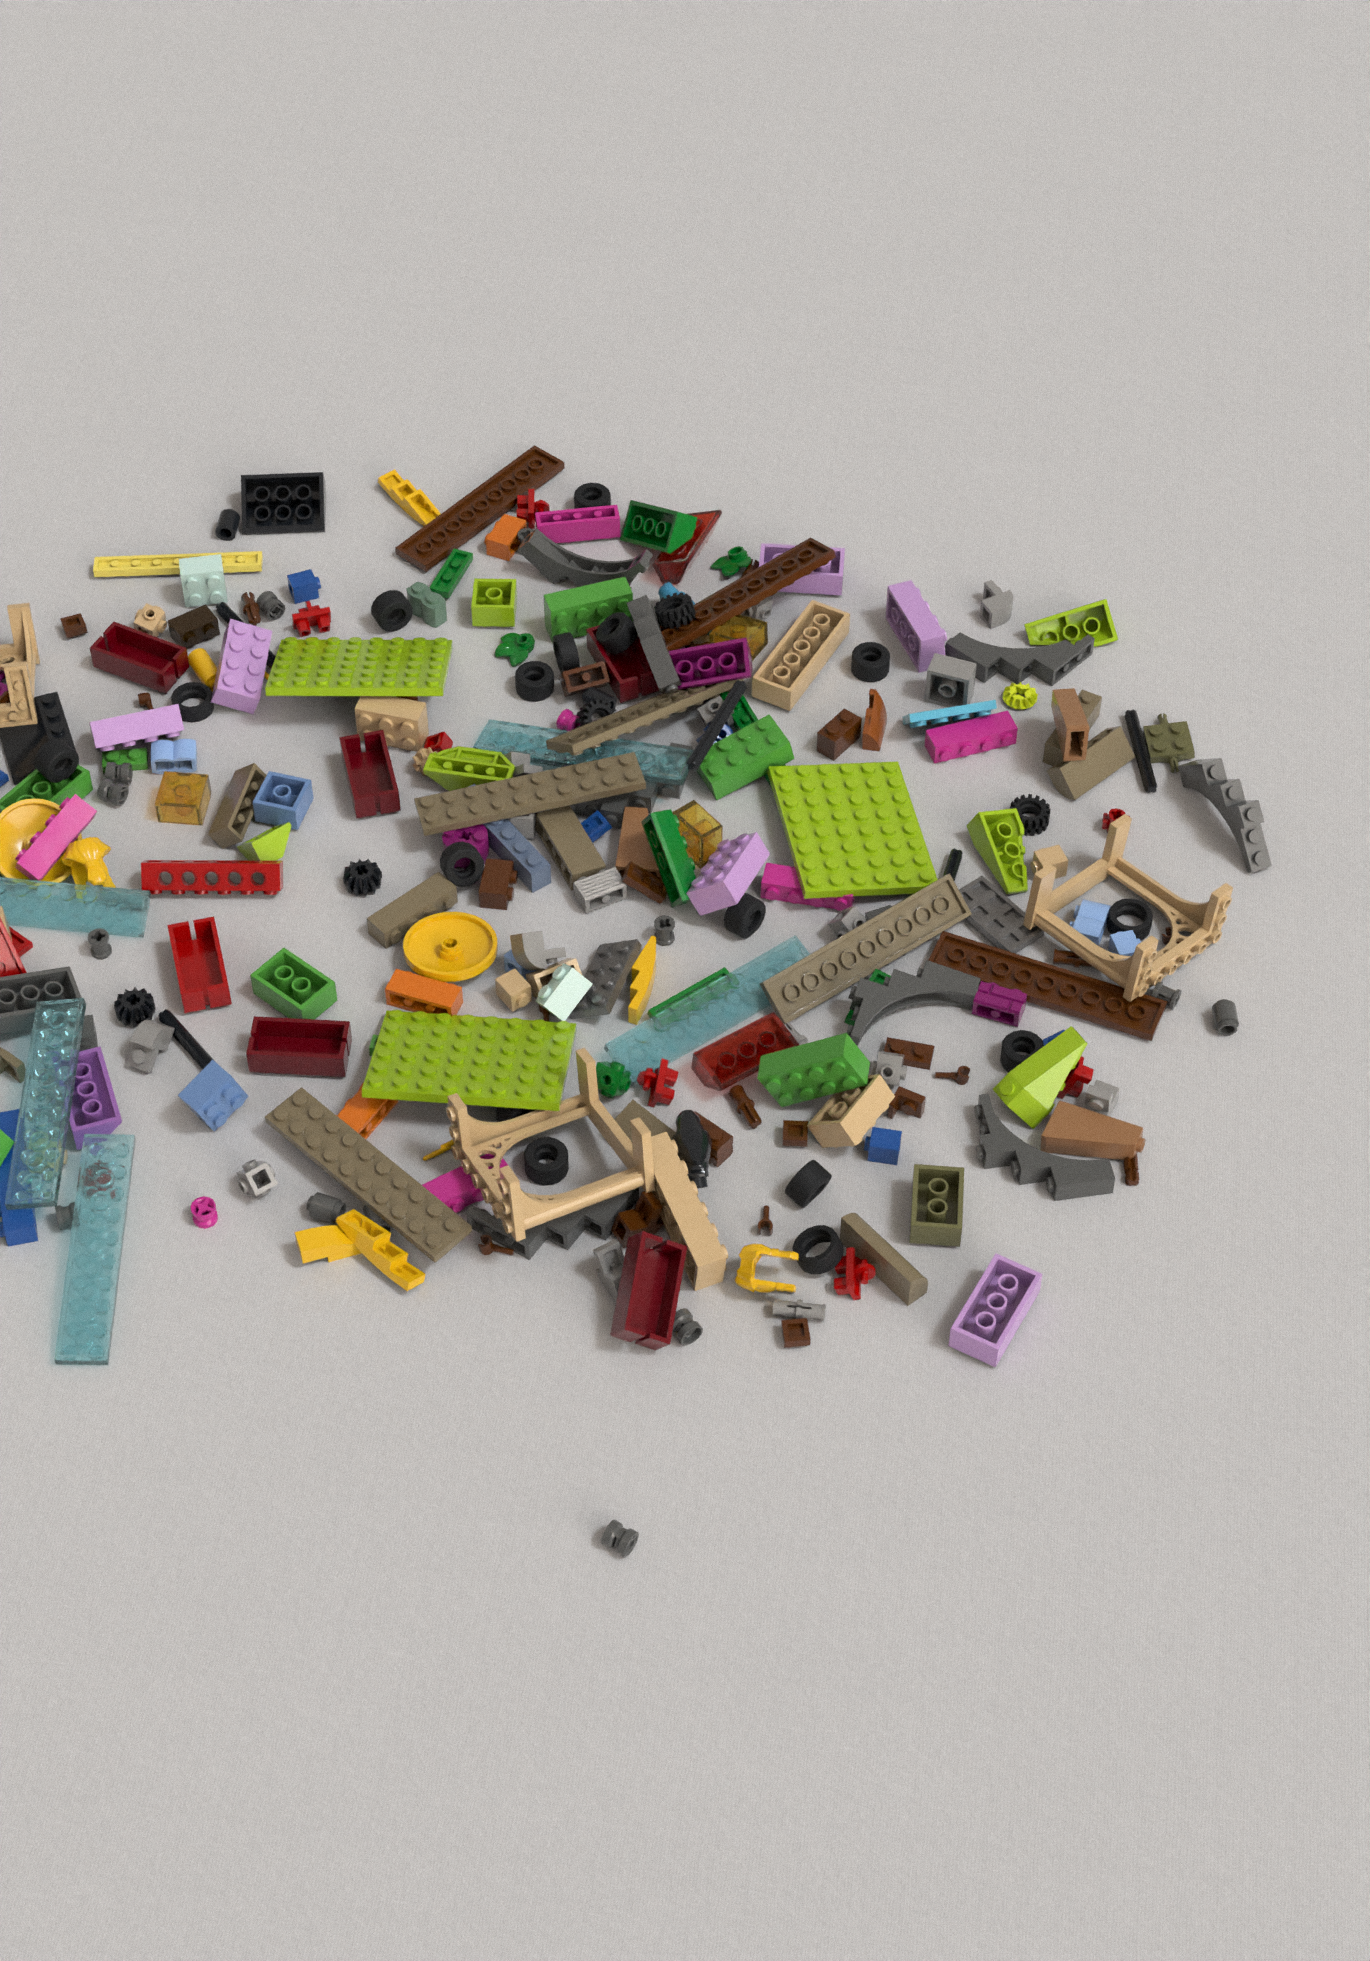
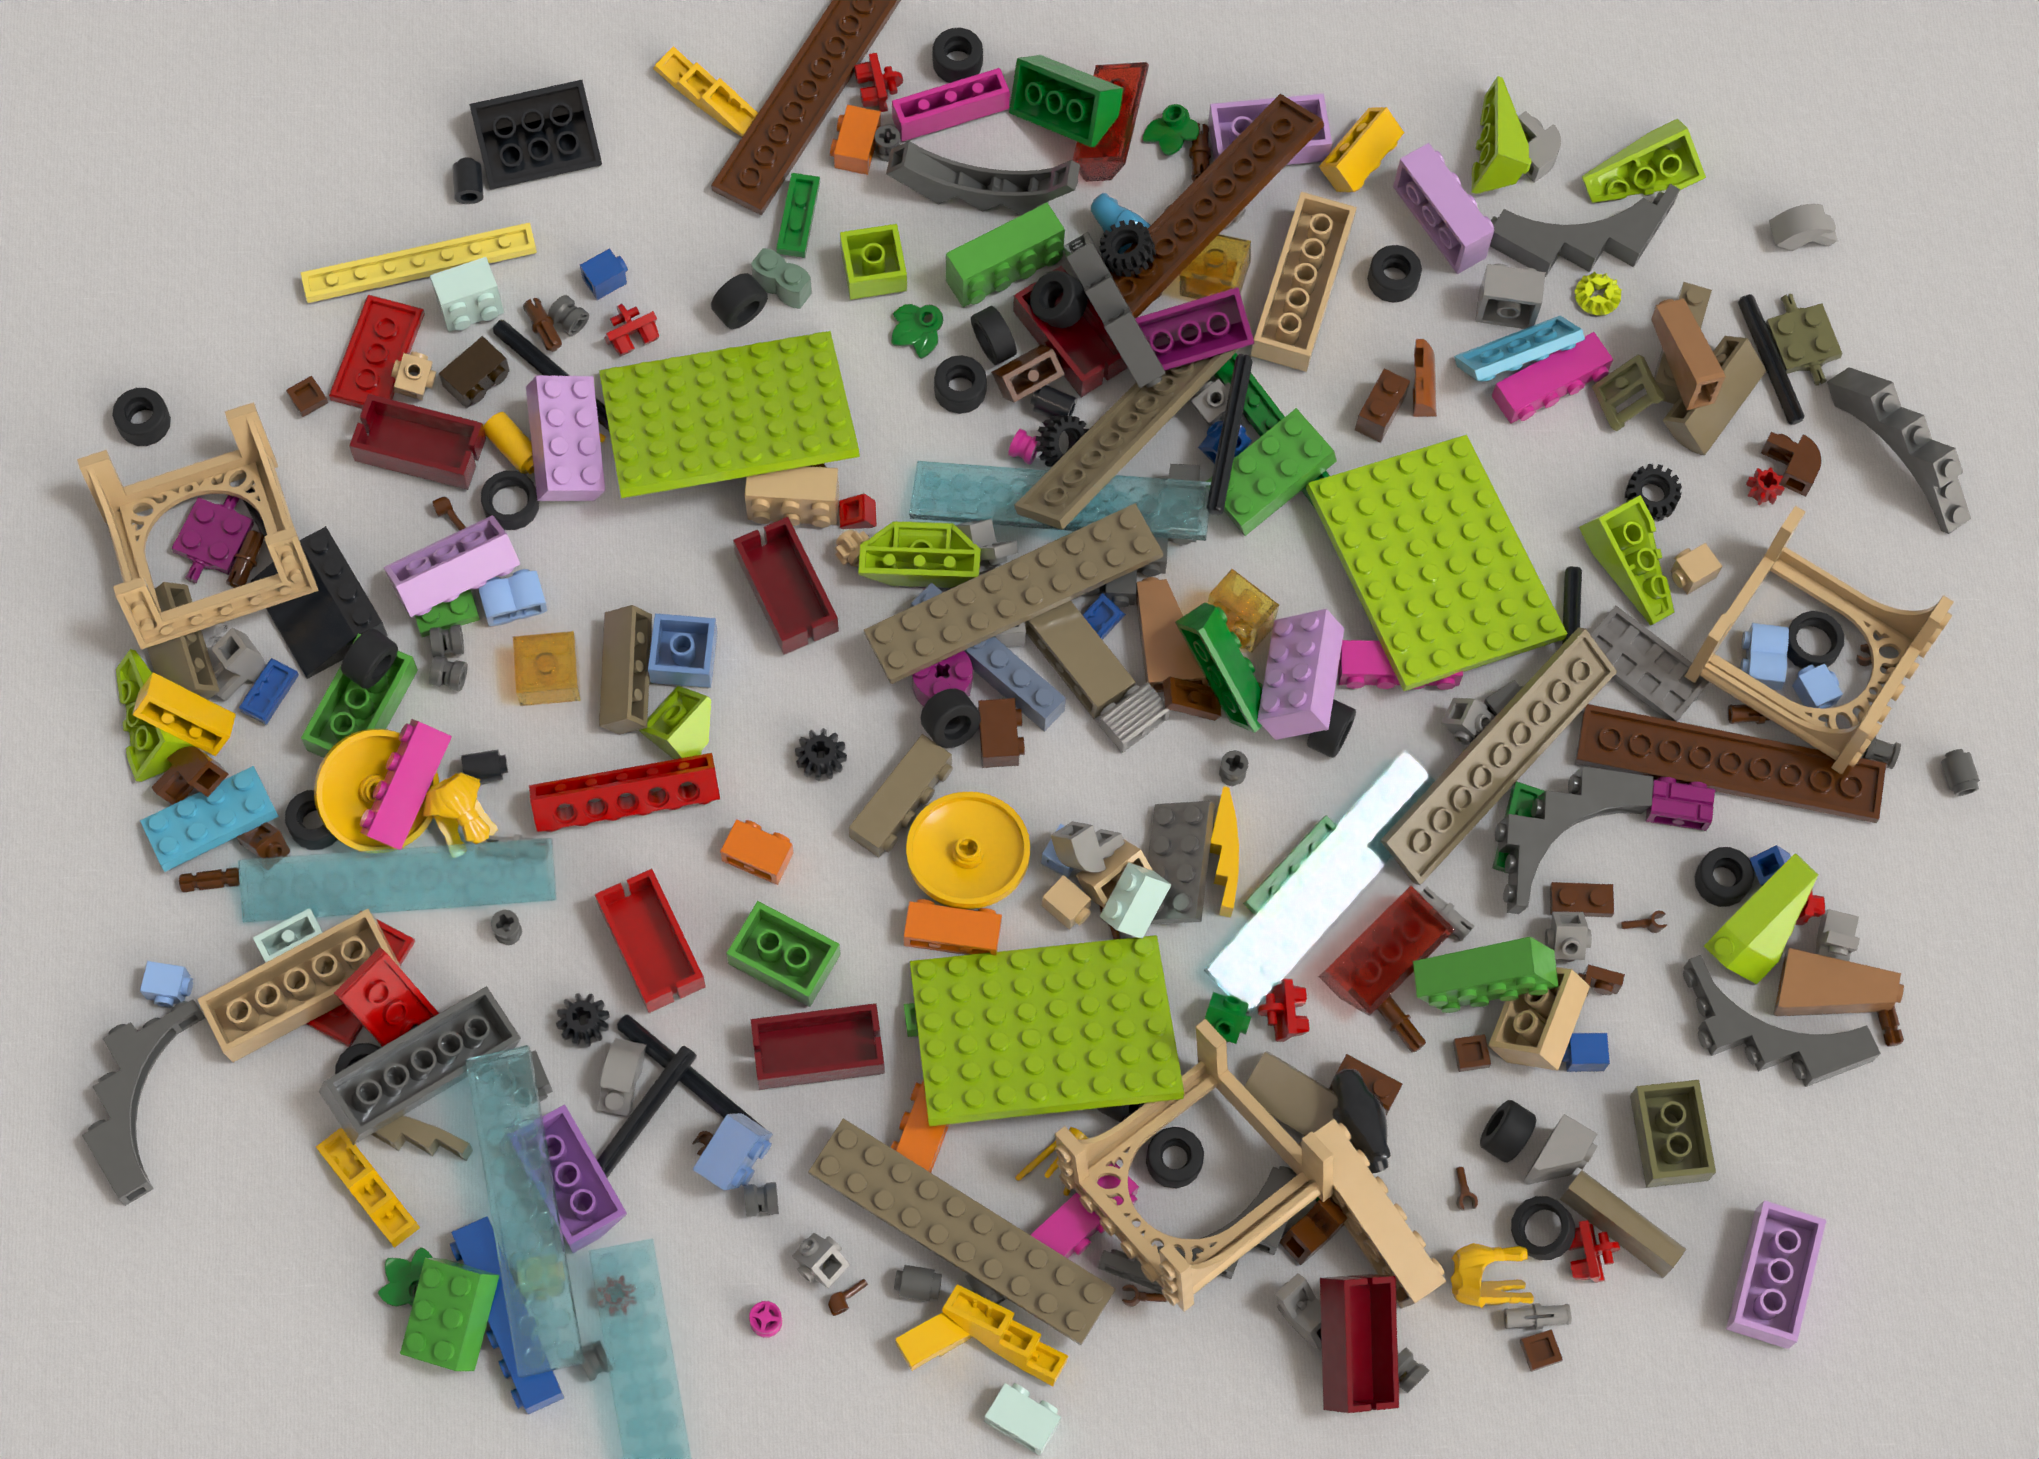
camera: 15 degrees left, 20 degrees up
(120, 847) = (485, 765): none -> black brick
(129, 602) = (379, 339): none -> red tile
(160, 1066) = (646, 1109): none -> black axle
(226, 1136) = (761, 1199): none -> dark grey wheel
(263, 1211) = (838, 1300): none -> reddish brown hand
(296, 927) = (757, 851): none -> orange brick
(377, 1307) = (1023, 1418): none -> light aqua brick
(844, 1195) = (1565, 1150): none -> light grey slope
(865, 588) = (1361, 149): none -> yellow brick
(969, 598) = (1501, 143): none -> lime wedge
(1020, 746) = (1621, 386): none -> olive plate
(1143, 810) = (1801, 458): none -> reddish brown brick
(1183, 671) = (1801, 225): none -> light grey brick

